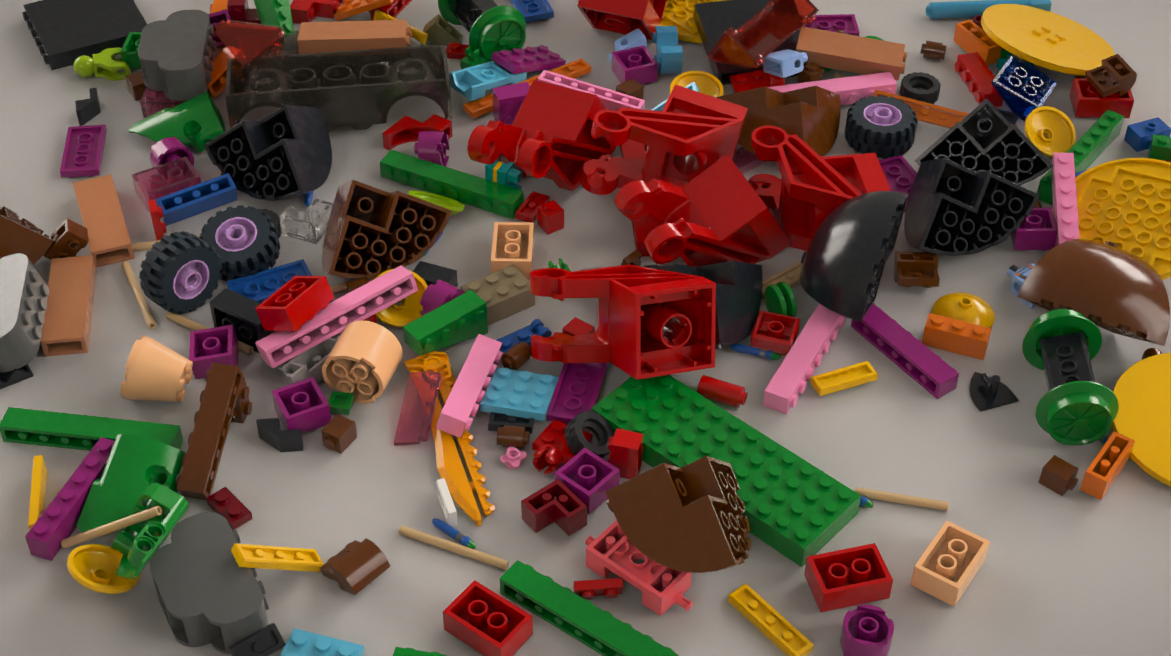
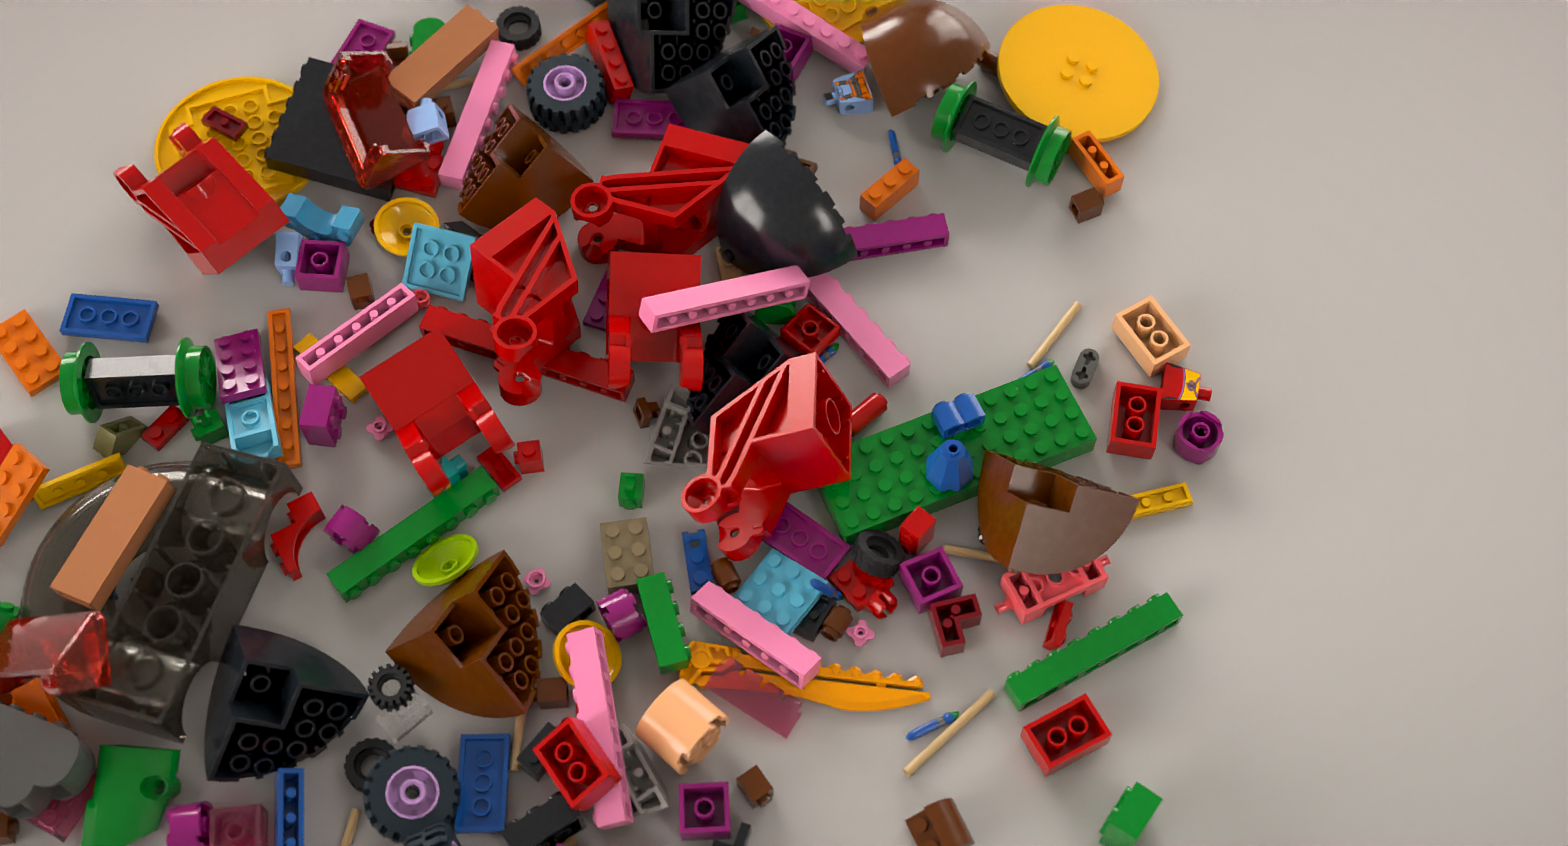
camera: 65 degrees left, 20 degrees up
(314, 200) = (384, 675): none -> black tyre
(341, 402) = (708, 769): green plate -> none
(446, 503) = (897, 717): white tile -> none
(451, 258) = (538, 574): none -> bright pink plate
(513, 246) = (568, 515): light nougat brick -> none
(535, 413) = (826, 589): none -> blue piece
(697, 439) = (950, 466): none -> blue cone
(745, 241) = (723, 298): none -> bright pink brick
(751, 434) = (957, 415): none -> blue brick
(843, 378) = (893, 305): yellow plate -> none
(882, 531) = (1080, 367): none -> dark grey beam
(911, 608) = (1181, 388): none -> red torso
(928, 135) = (609, 60): none -> red brick
(965, 308) = (854, 176): yellow dish -> none
(989, 392) = (959, 201): black shield -> none
(1005, 331) = (894, 147): none -> blue piece

